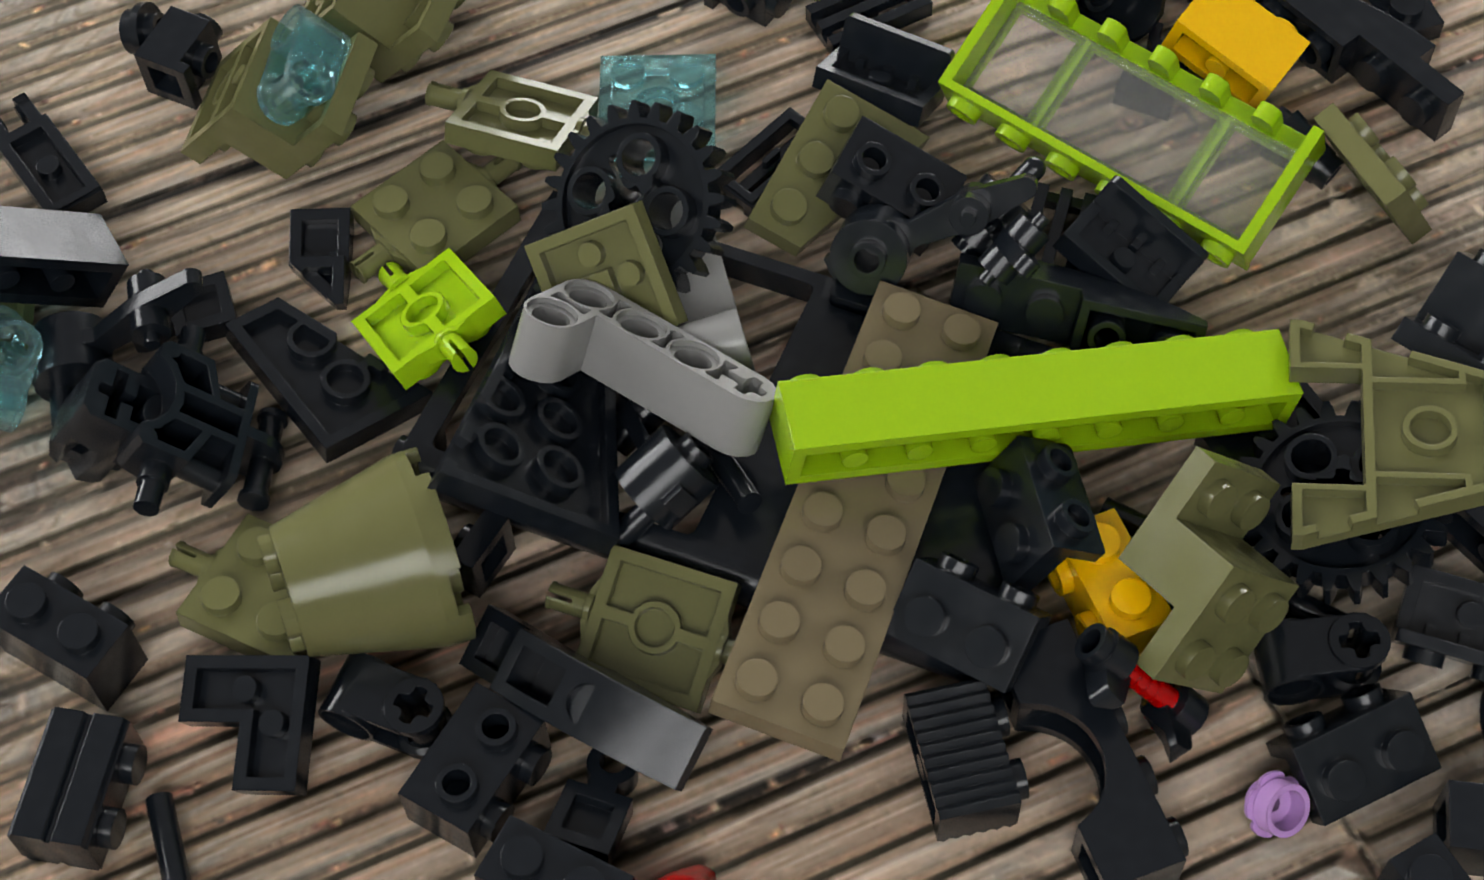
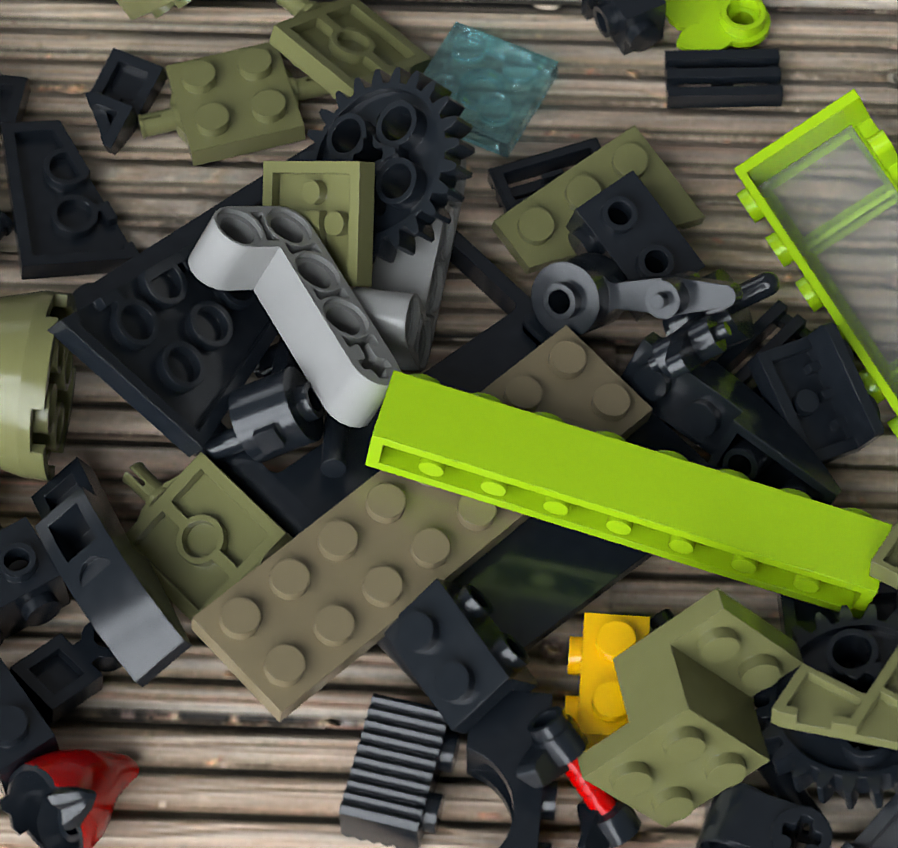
camera: 25 degrees right, 0 degrees up
(428, 318) = (166, 190): lime plate -> none
(483, 550) = (99, 414): black plate -> none
(887, 68) = (698, 139): black bracket -> none
(1037, 510) = (576, 587): black bracket -> none

